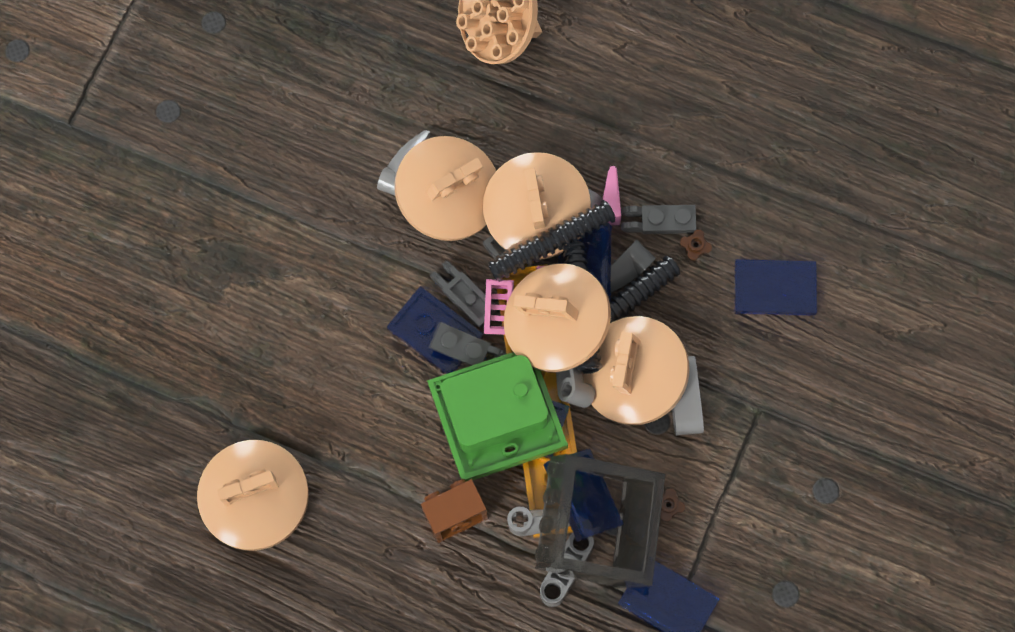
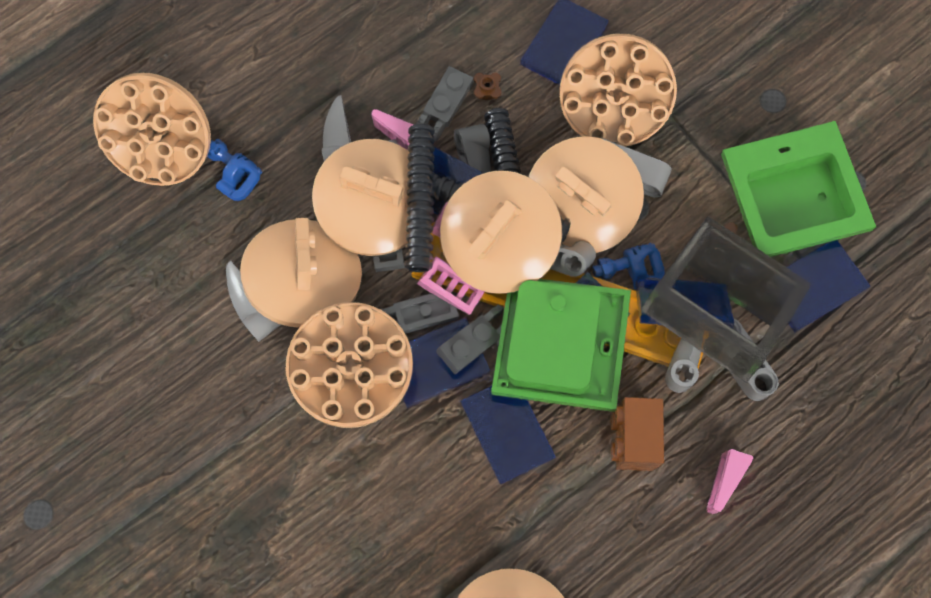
camera: 65 degrees left, 0 degrees up
(388, 262) = (349, 365): none -> light nougat bracket
(405, 415) = (507, 434): none -> clear blue tile
(463, 601) = (729, 473): none -> bright pink slope
(505, 91) = (235, 170): none -> blue piece
(585, 149) = (336, 129): none -> light grey piece
(603, 439) = (633, 261): none -> blue piece
(736, 545) = (798, 194): none -> bright green piece
(741, 349) = (618, 89): none -> light nougat bracket

